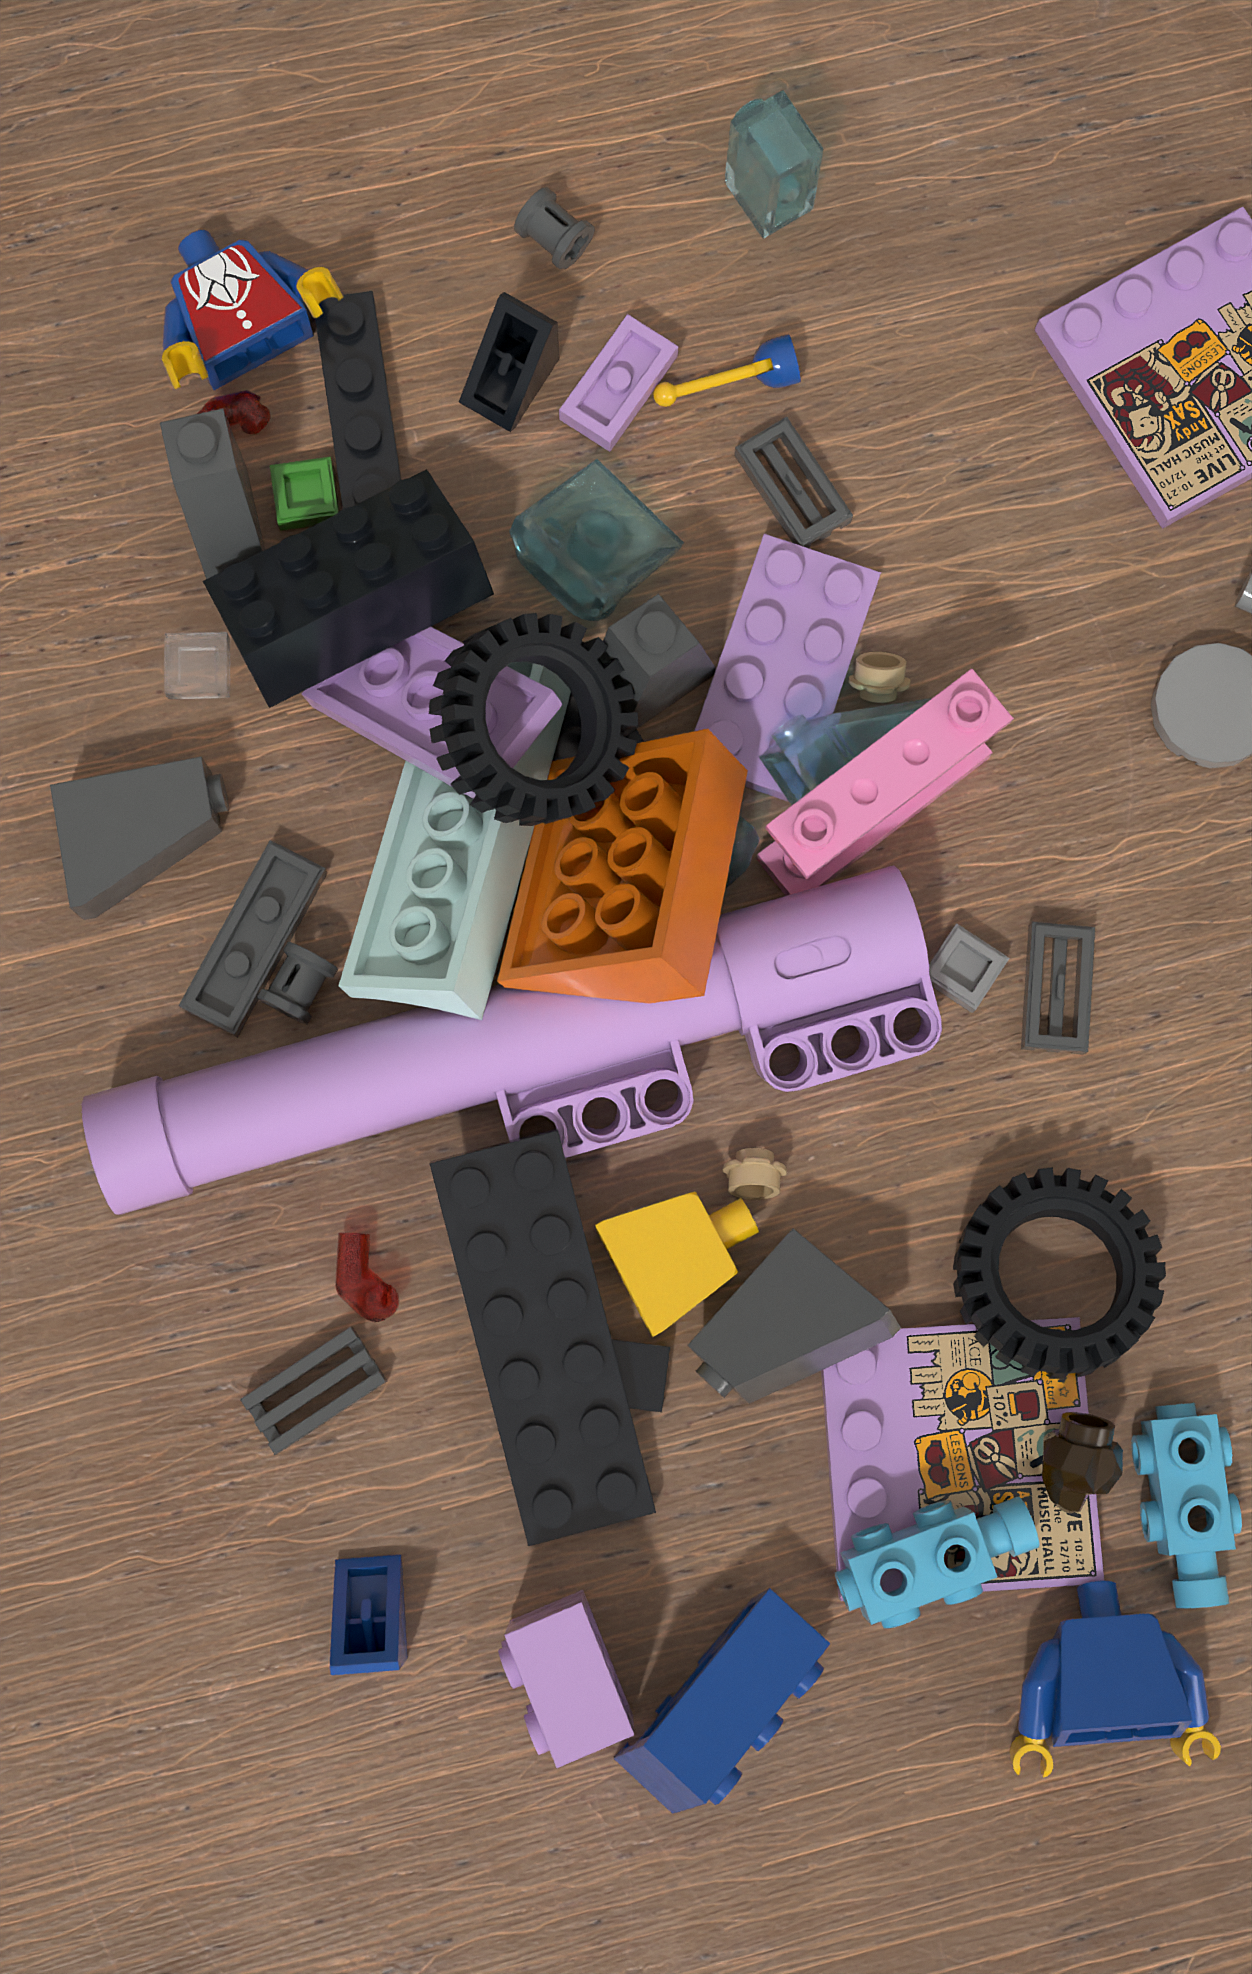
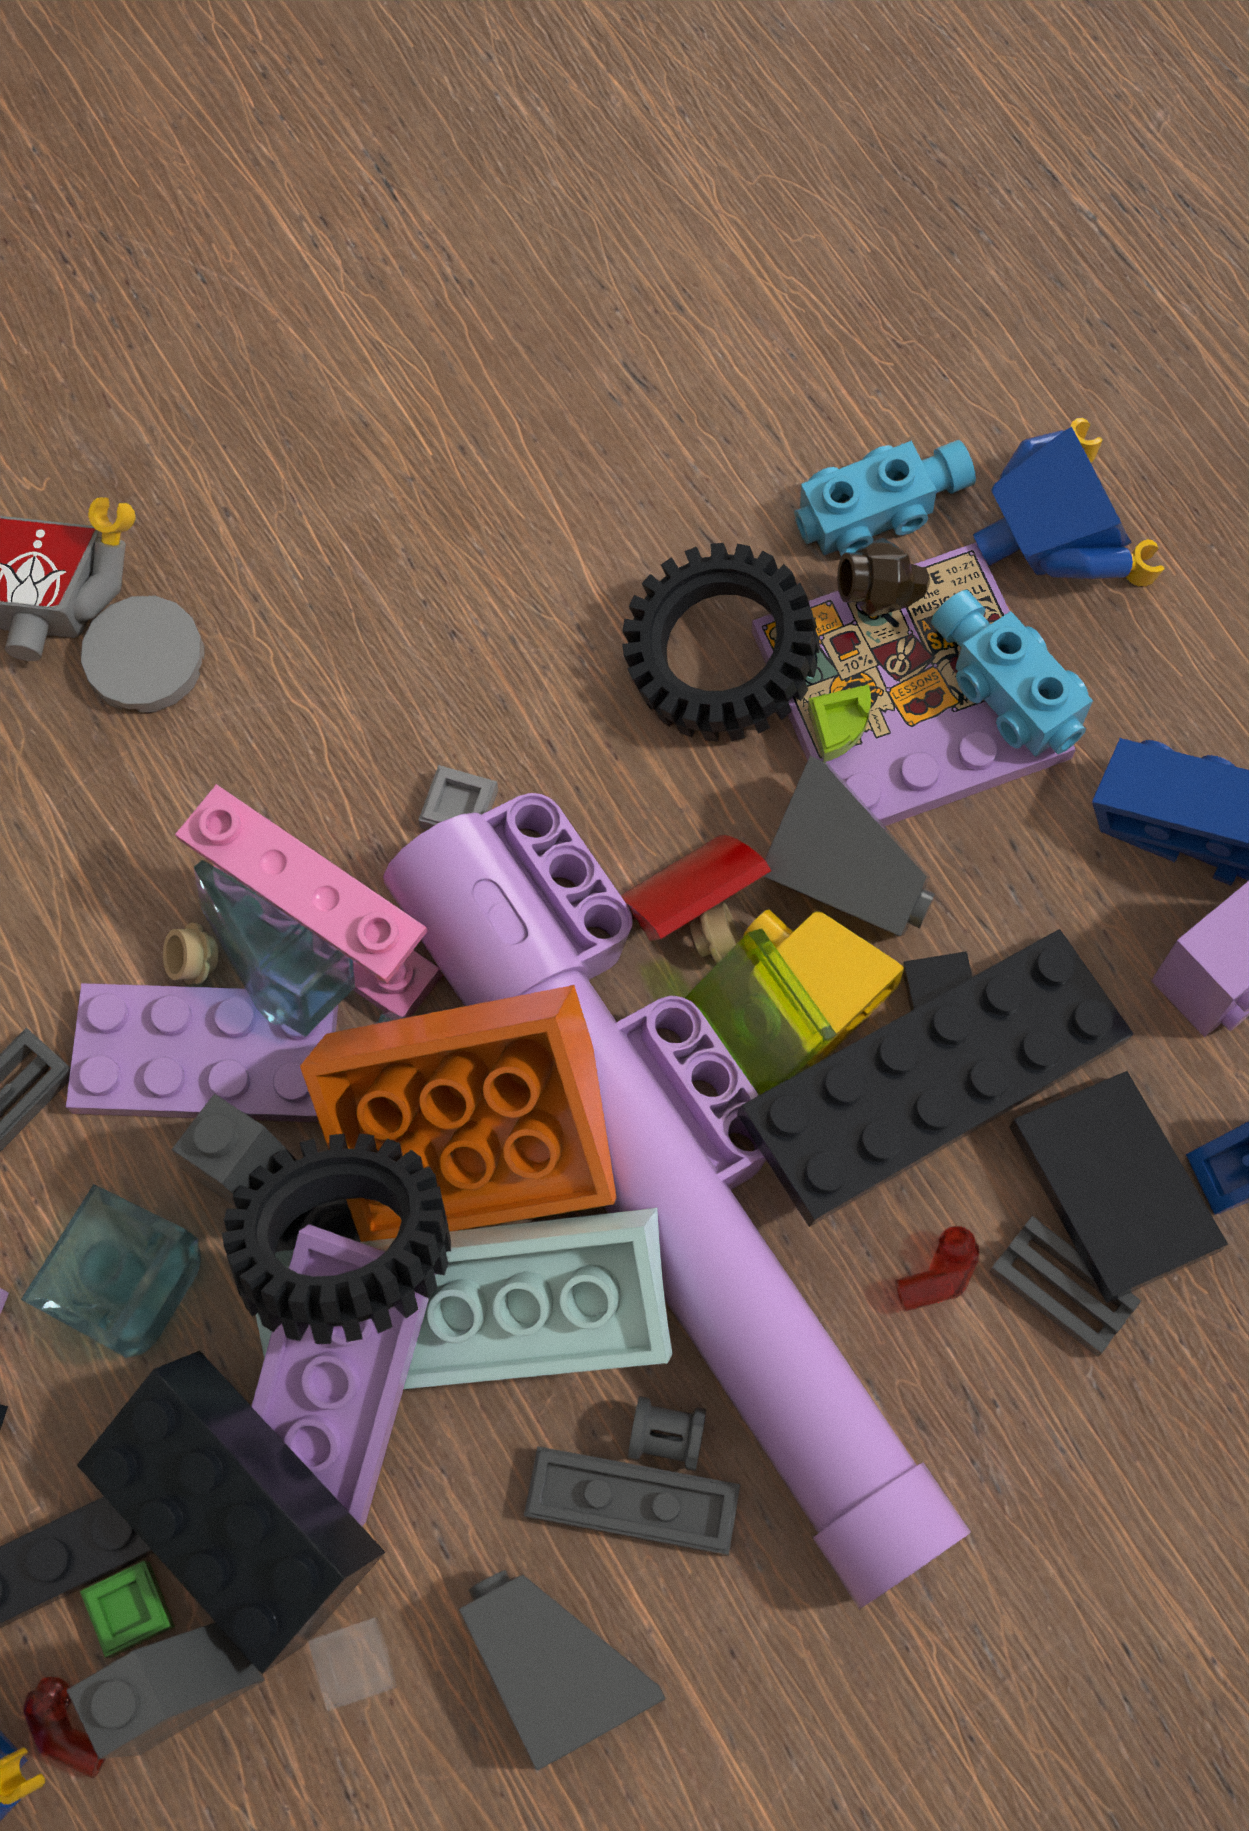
camera: 100 degrees left, 10 degrees down
(387, 1473) = (1117, 1186): none -> black tile
(649, 1181) = (761, 1012): none -> clear neon green tile
(799, 1157) = (694, 885): none -> red slope
(938, 1367) = (839, 719): none -> lime tile
(1033, 983) = (458, 739): dark grey tile -> none

